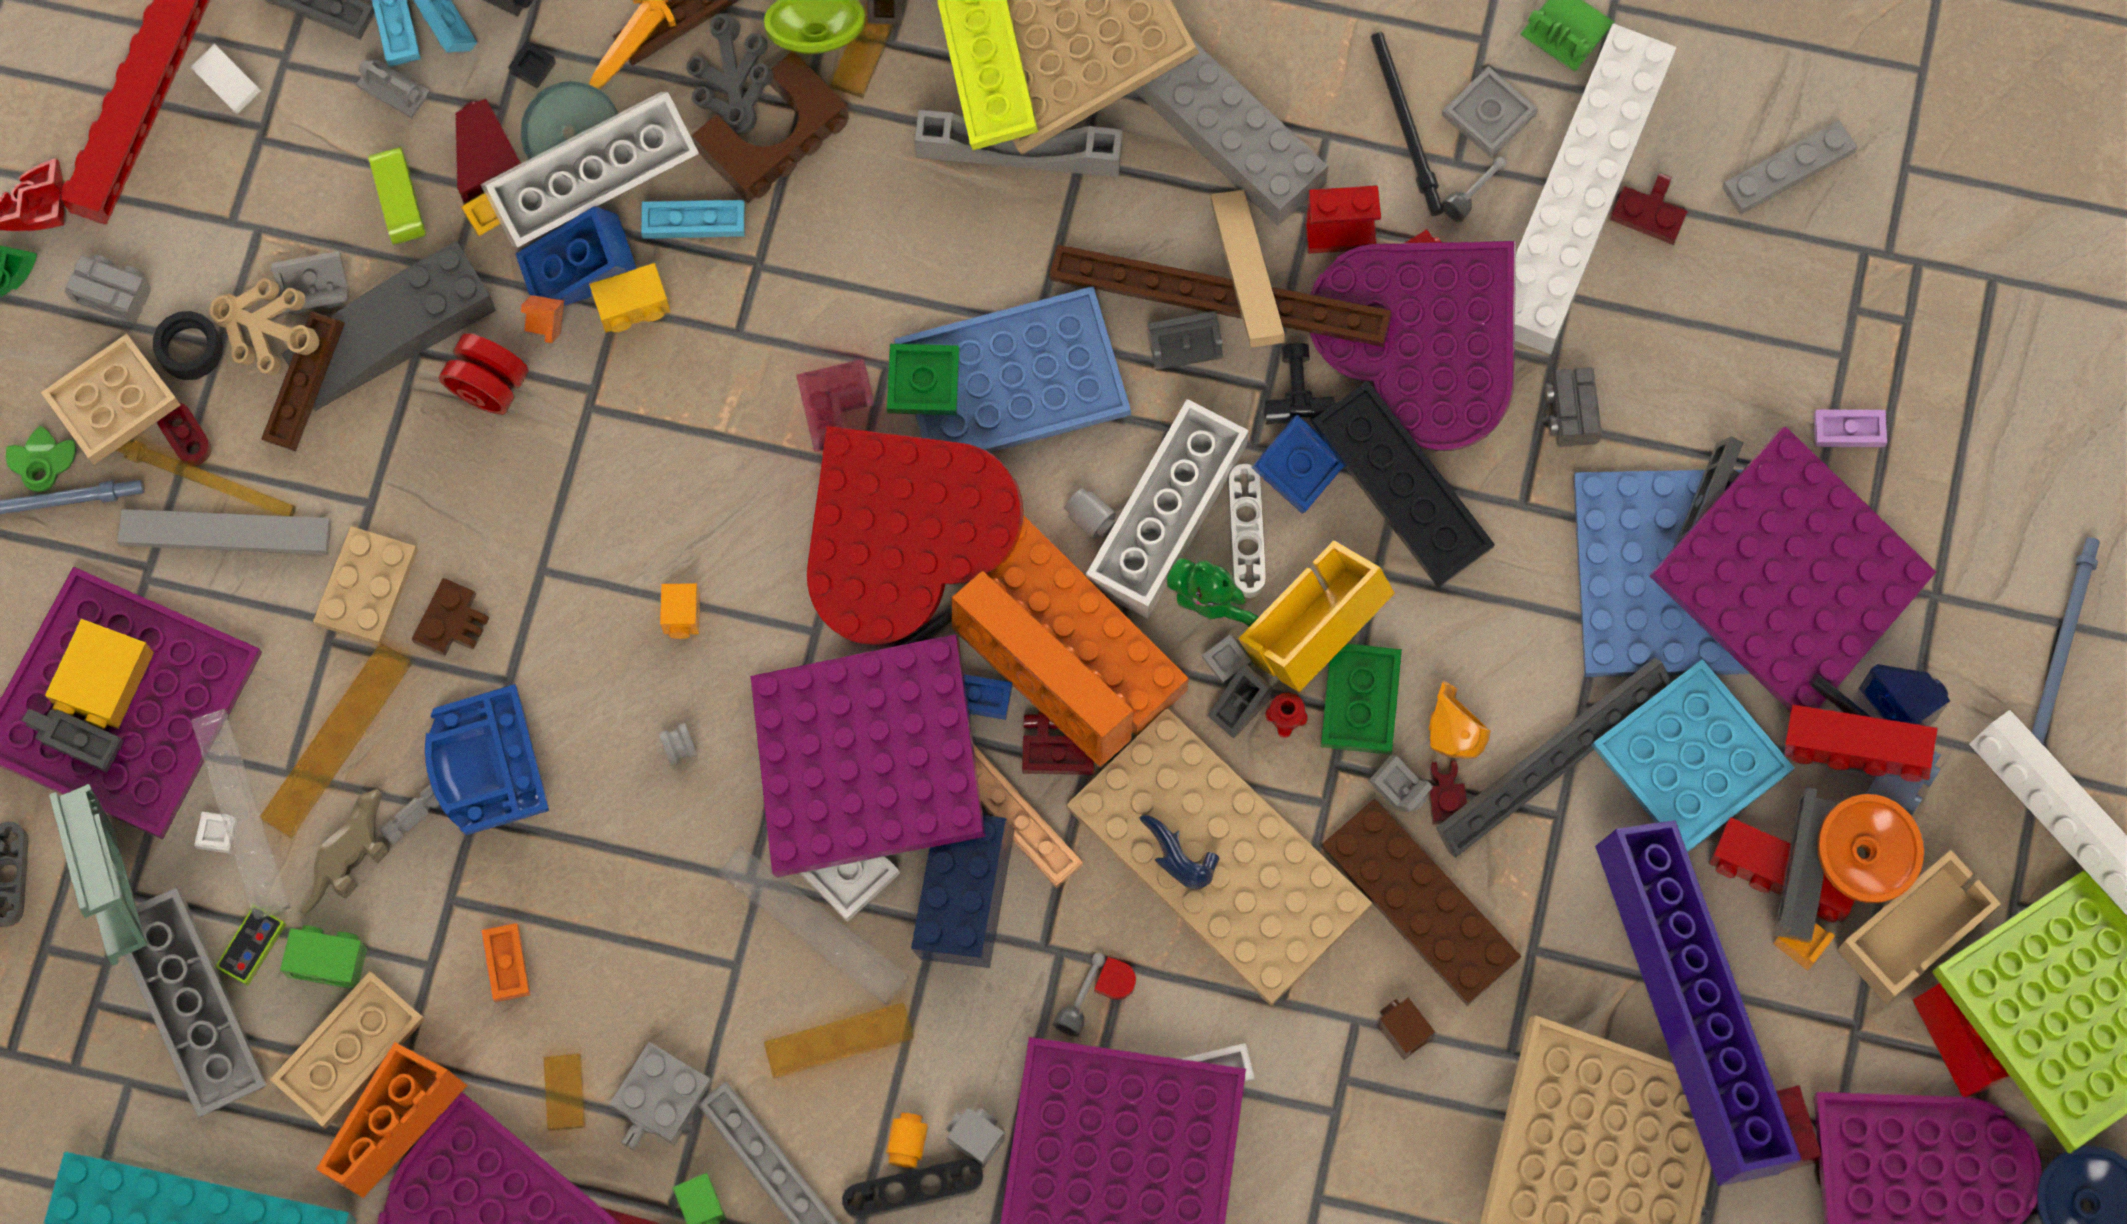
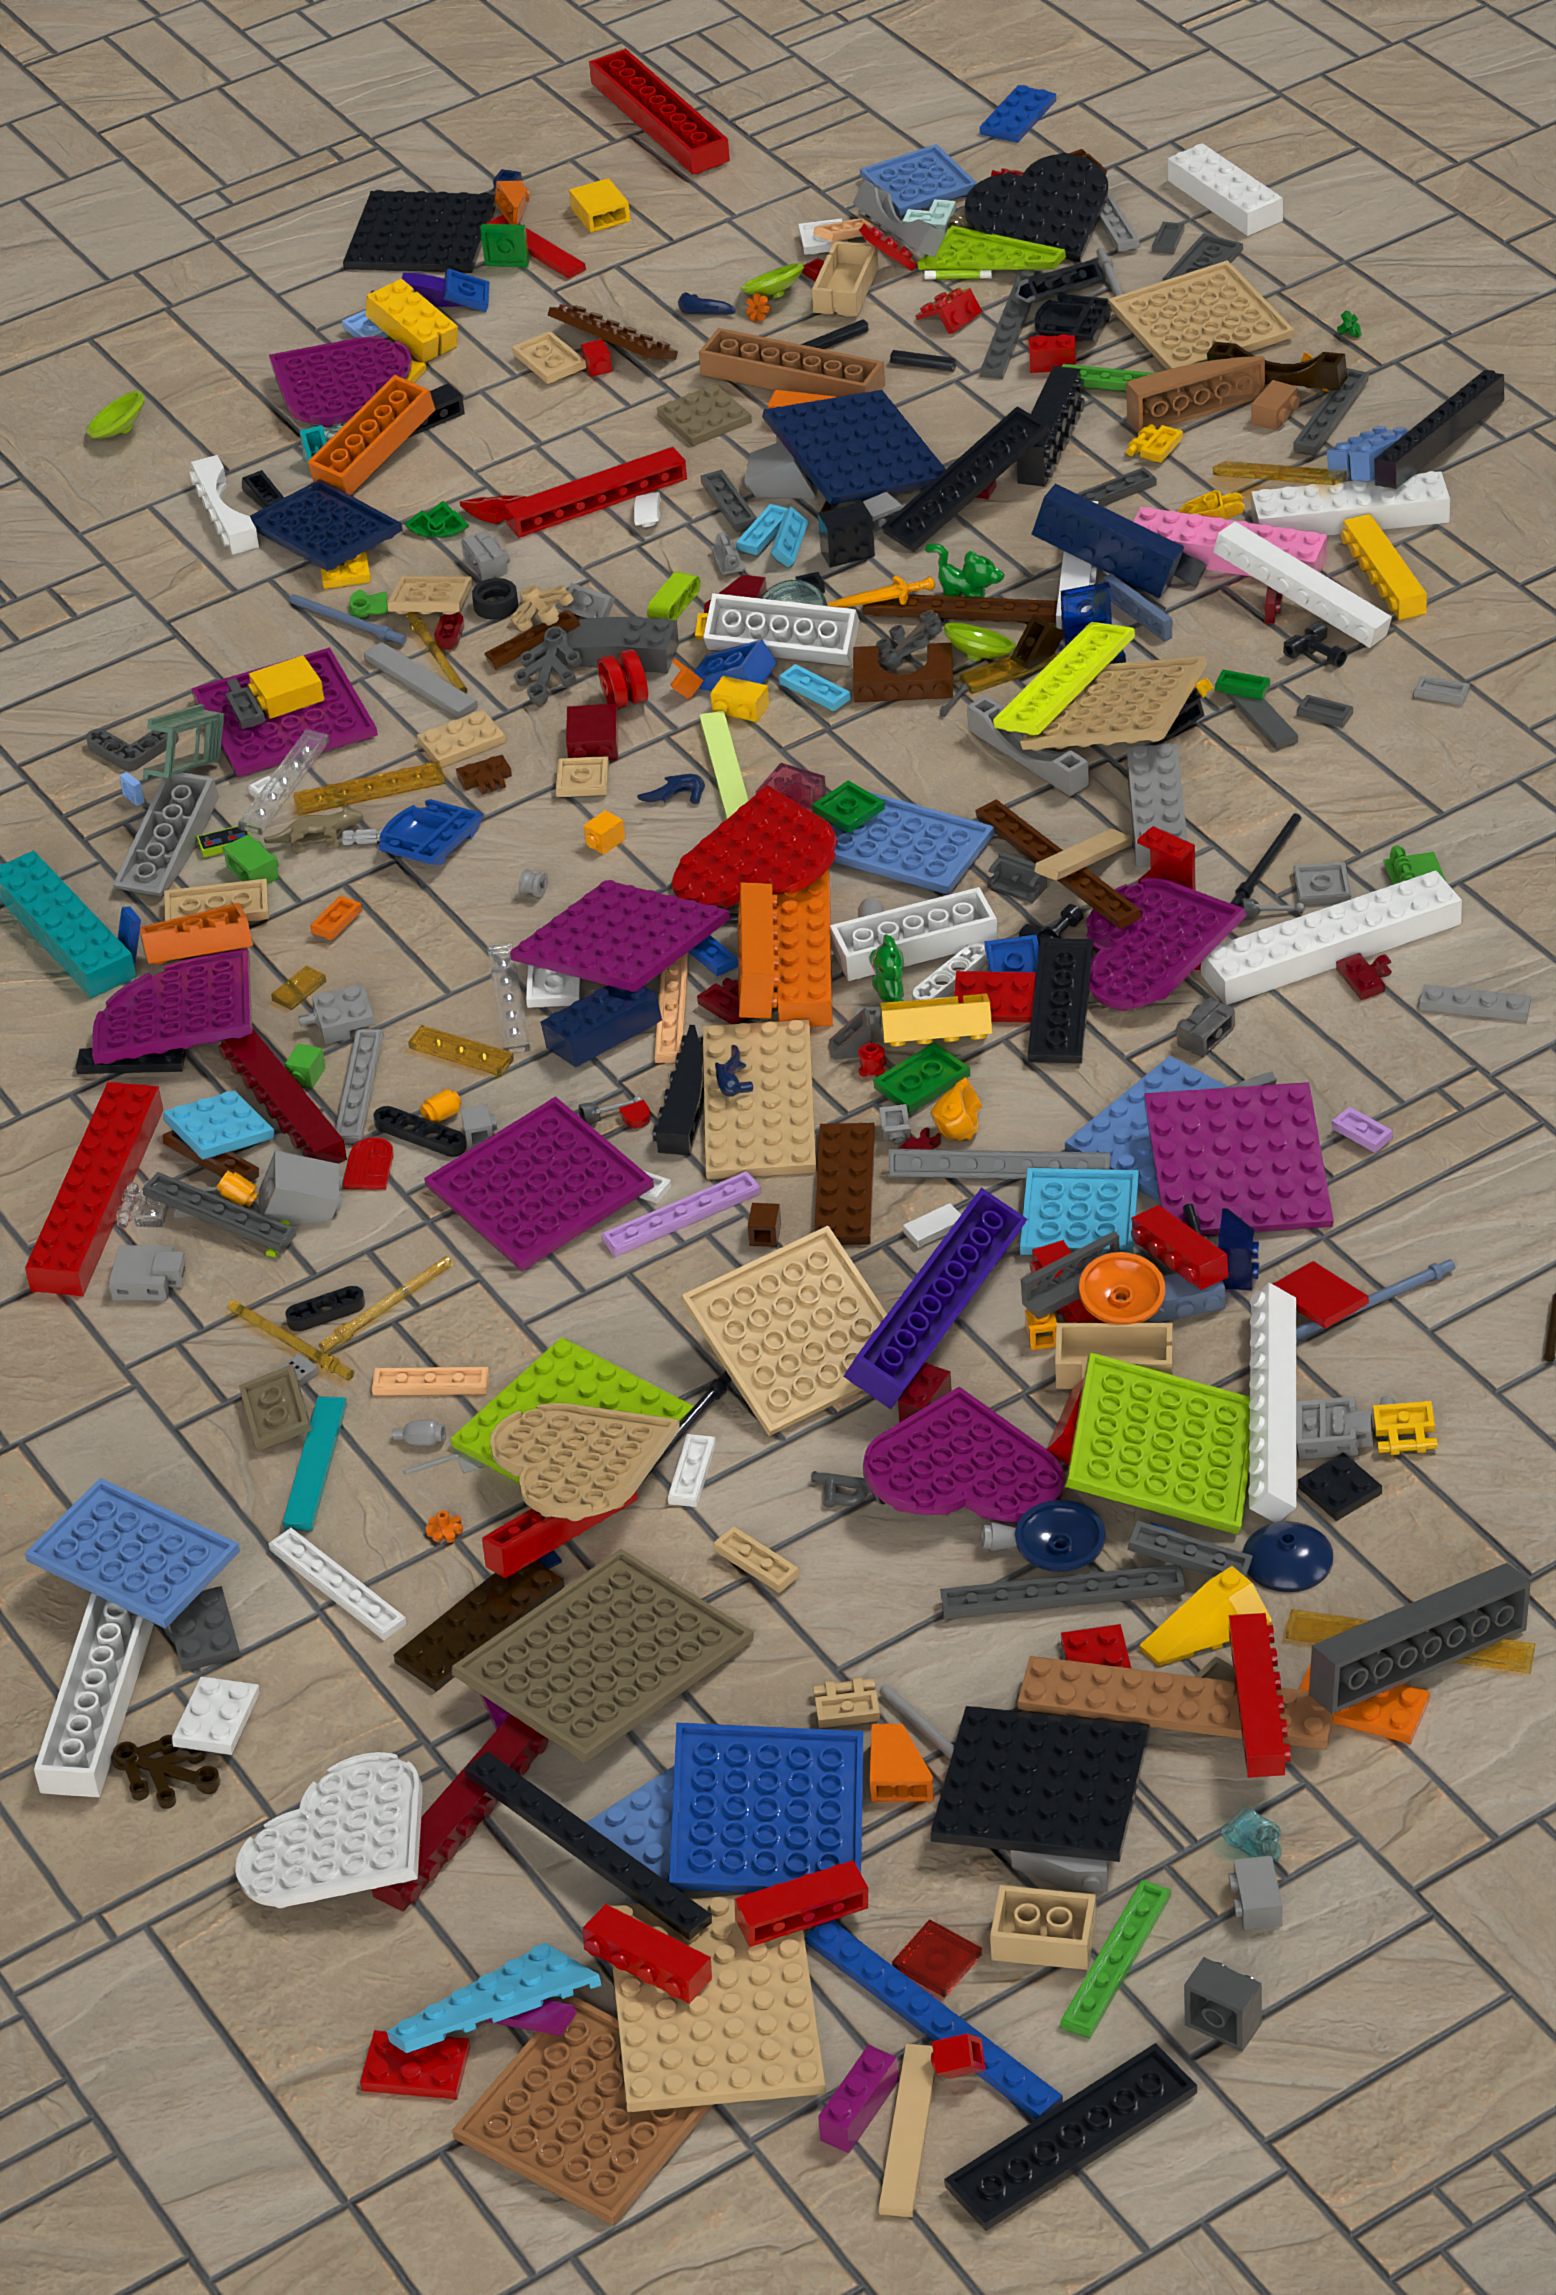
camera: 45 degrees right, 30 degrees down
(63, 956) = (131, 788): none -> light blue tile
(310, 1184) = (129, 930): none -> blue tile
(361, 404) = (554, 639): none -> dark grey plant
(516, 471) = (592, 731): none -> dark red brick
(568, 543) = (582, 776): none -> tan plate
(686, 478) = (676, 784): none -> dark blue piece
(716, 413) = (723, 761): none -> yellowish green tile
(851, 98) = (962, 689): none -> dark grey hinge
(1150, 920) = (683, 1101): none -> black slope
(1297, 1077) = (680, 1213): none -> lavender tile
(1333, 512) = (1008, 992): none -> red plate
(1564, 886) = (931, 1226): none -> white tile
(2017, 679) = (1322, 1294): none -> red tile

